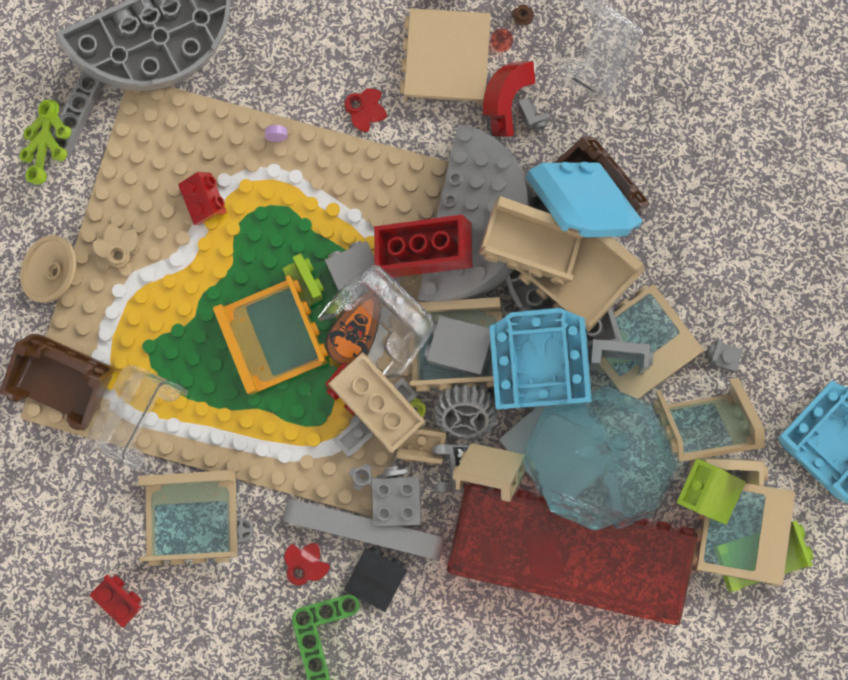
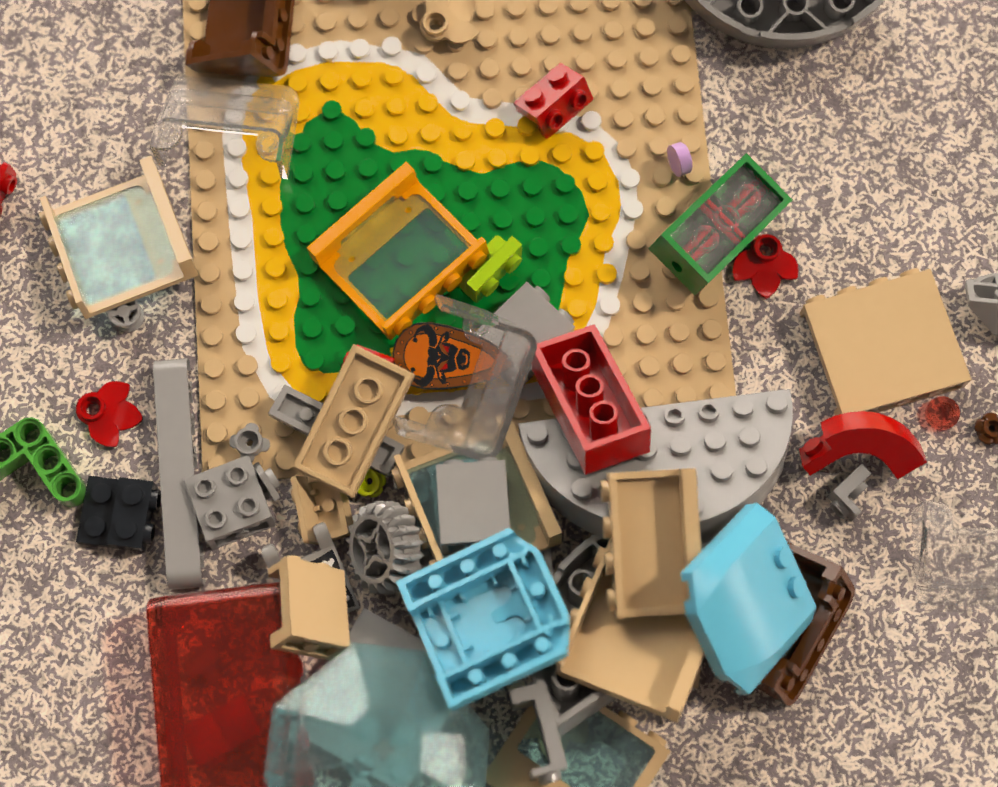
camera: 70 degrees right, 5 degrees down
(332, 124) = (720, 224): none -> clear brick

